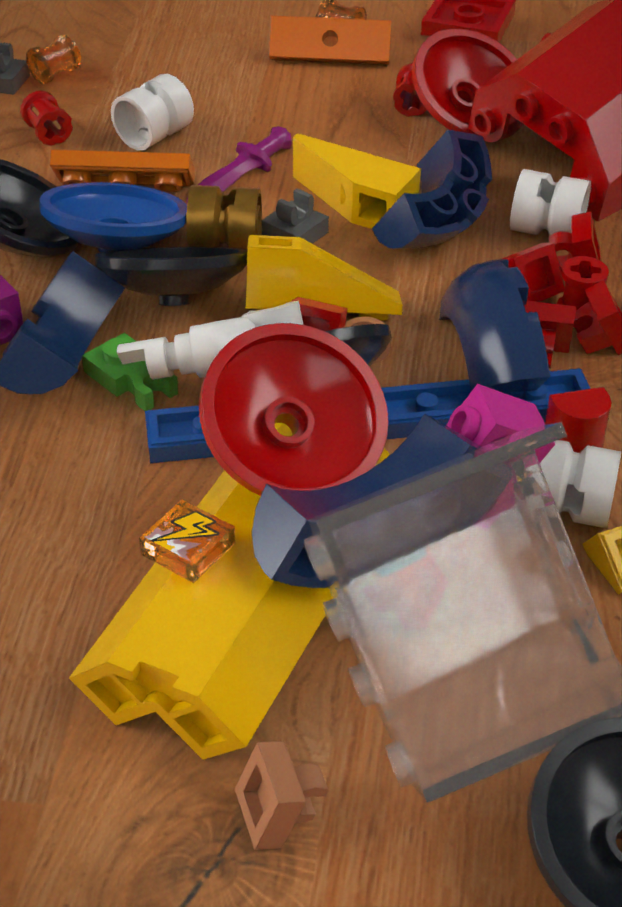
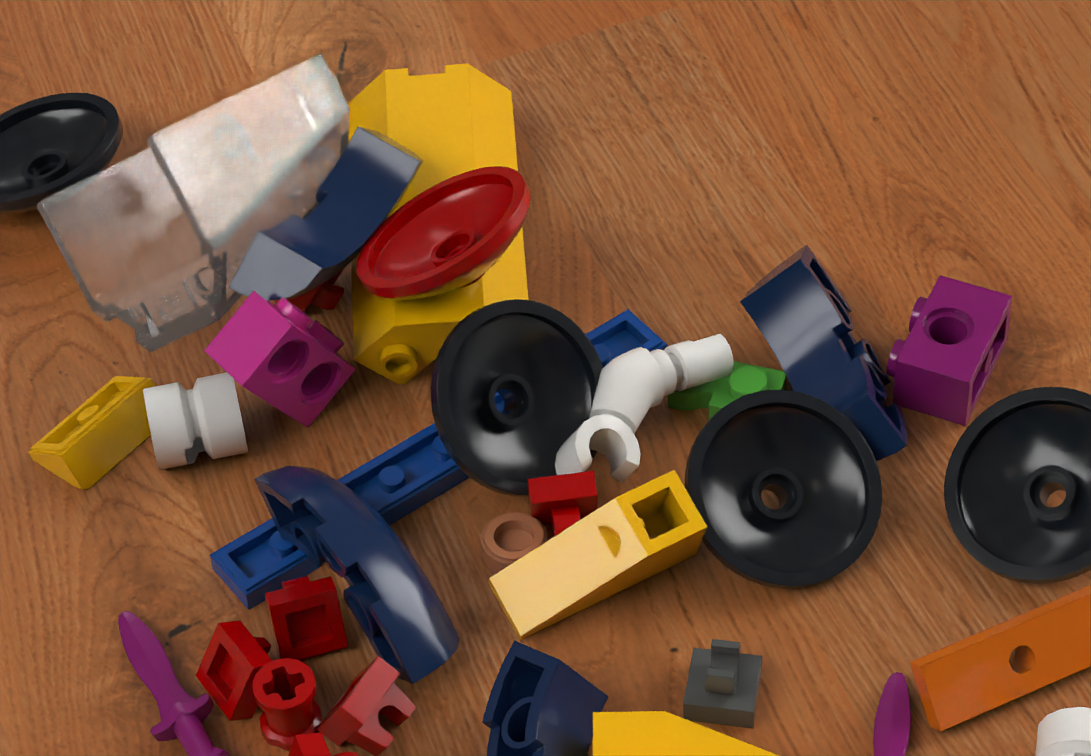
camera: 155 degrees right, 5 degrees up
(113, 214) = (931, 495): blue dish -> none
(187, 540) = (471, 145): clear orange tile -> none
(222, 217) = (803, 606): pearl gold wheel -> none
(583, 416) = (217, 503): red brick -> none

